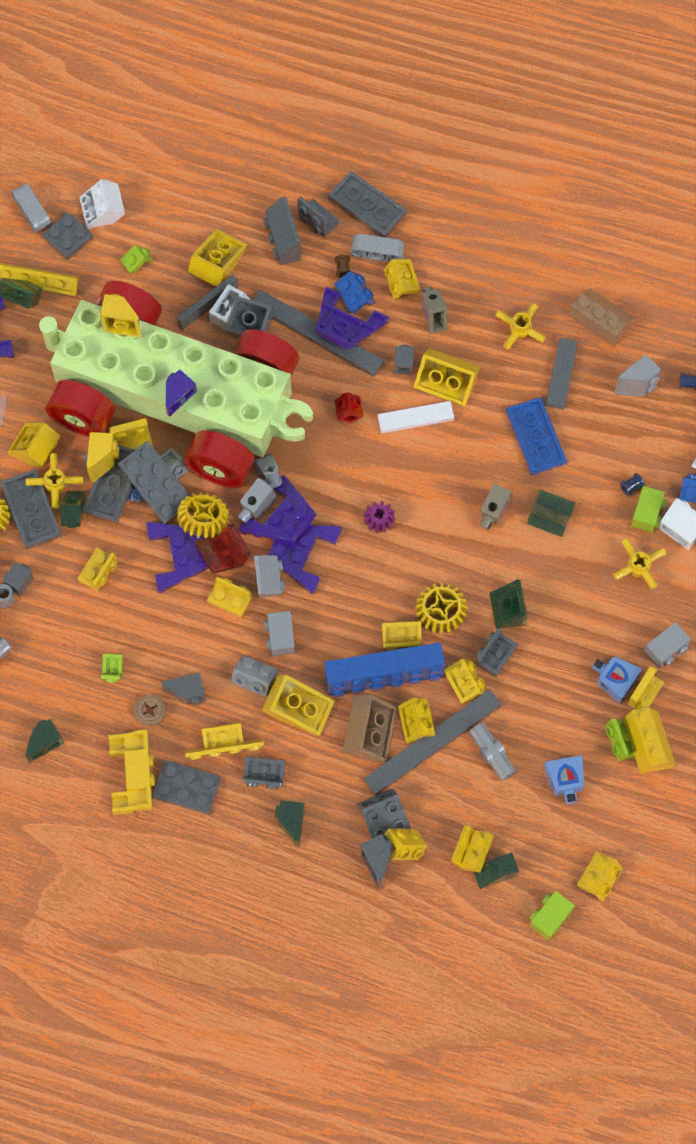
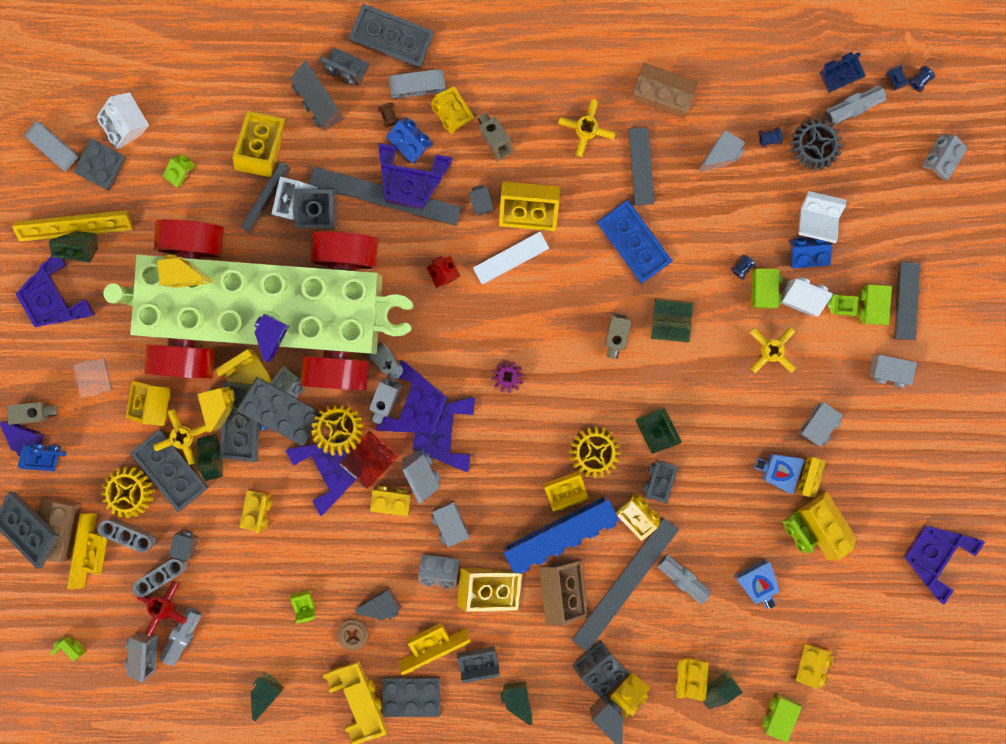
camera: 20 degrees left, 20 degrees up
(416, 719) = (604, 570): yellow bracket -> none

